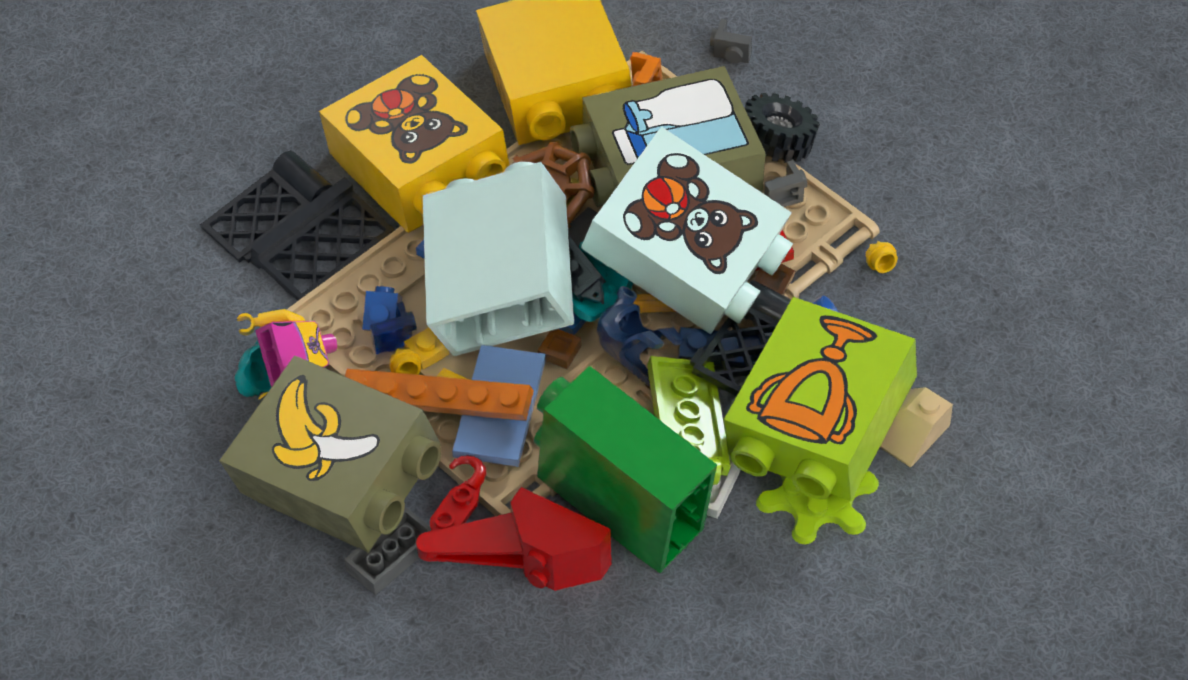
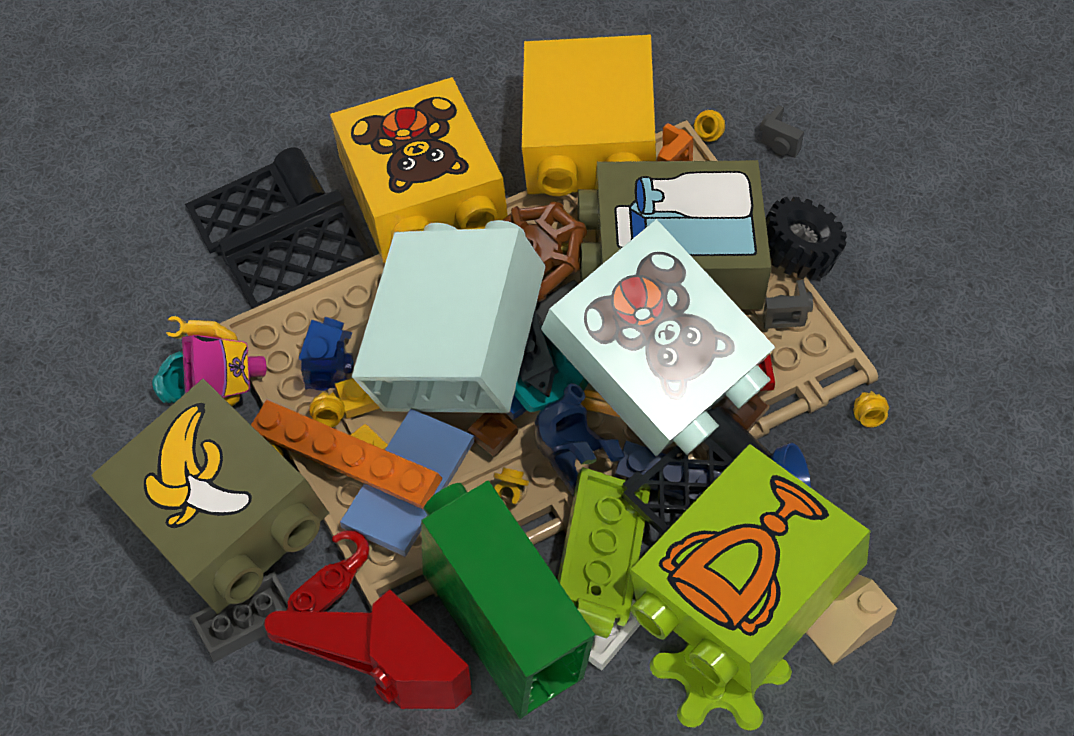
camera: 15 degrees right, 5 degrees up
(665, 49) = (709, 125): none -> yellow plate

